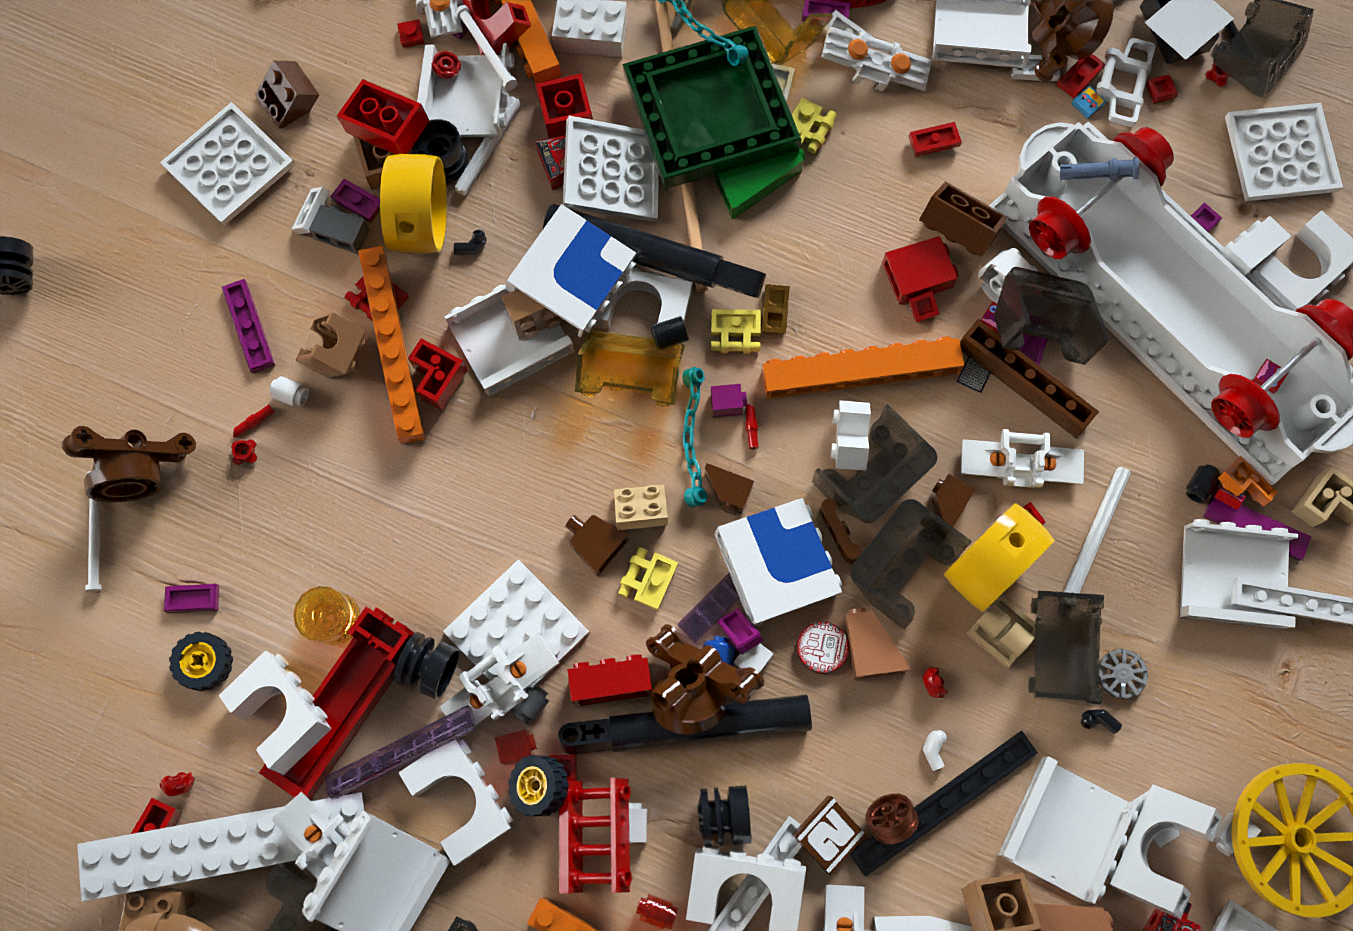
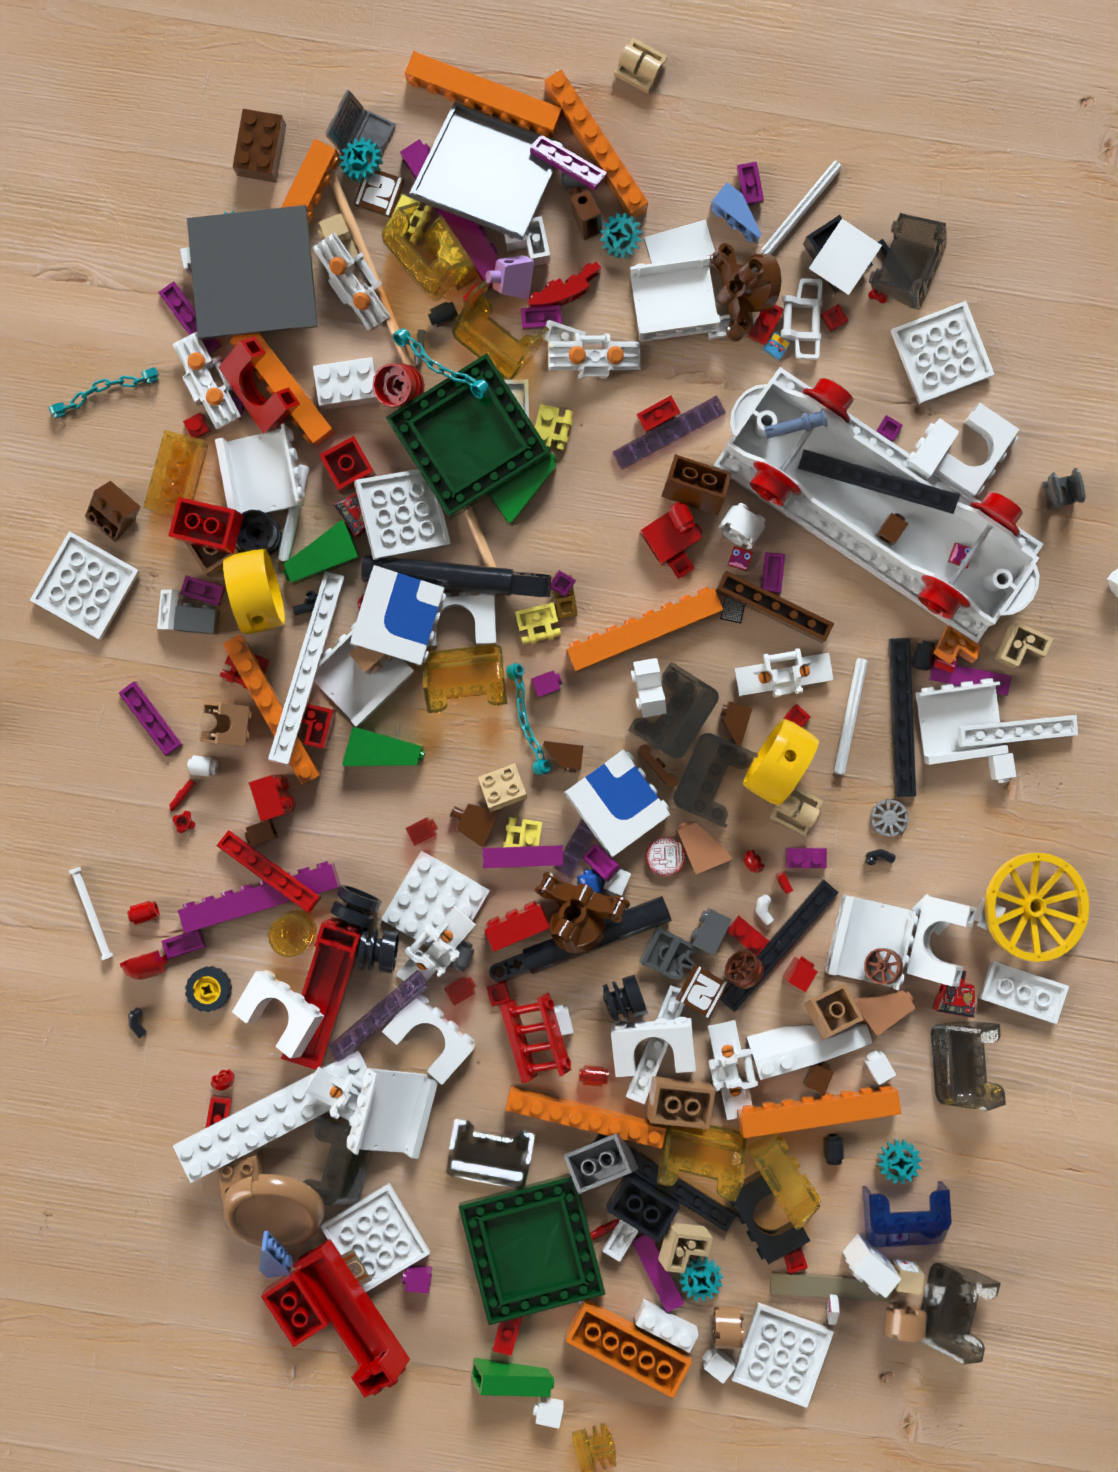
camera: 20 degrees left, 15 degrees up
(94, 680) = (133, 1022): none -> black arm
(121, 470) = (103, 864): reddish brown piece -> none
(132, 606) = (144, 966): none -> red brick
(156, 545) = (143, 912): none -> red brick
(302, 564) = (253, 899): none -> magenta brick
(324, 533) = (268, 871): none -> red tile
(331, 487) = (261, 832): none -> reddish brown brick
(357, 441) = (272, 796): none -> red brick
(377, 57) = (175, 472): none -> clear yellow brick
(416, 602) = (355, 906): none -> black wheel
(444, 309) = (306, 668): none -> white plate
(449, 59) = (237, 446): red plate -> none
(505, 195) = (324, 554): none -> green slope
(505, 427) = (375, 749): none -> green slope
(509, 82) = (238, 402): white bar -> none
(526, 534) = (422, 830): none -> clear red brick
(538, 785) = (476, 1009): black wheel -> none
(642, 597) = (523, 856): none -> magenta tile
(645, 32) = (388, 384): none -> red wheel
(669, 333) = (488, 645): black piece -> none
(751, 427) = (570, 698): red piece -> none
(776, 291) = (562, 583): none -> magenta tile
(796, 773) = (668, 954): none -> dark grey plate
(859, 757) = (710, 931): none -> dark grey brick
(905, 777) = (747, 935): none -> red plate
(938, 246) = (681, 517): none -> red brick
(942, 163) = (669, 432): none -> clear purple tile
(966, 844) = (800, 973): none -> red brick
(968, 720) = (783, 882): none -> red tile
(1003, 697) = (806, 857): none -> magenta plate
(1051, 310) = (780, 547): clear smoke windscreen -> none
(1067, 648) = (844, 814): clear smoke windscreen -> none
(1080, 864) = (883, 966): none -> copper wheel
(1161, 555) = (902, 717): none -> black tile
(1187, 264) = (879, 481): none -> black tile
(1191, 322) = (892, 528): none -> reddish brown brick
(1282, 645) = (1002, 767): none -> white brick

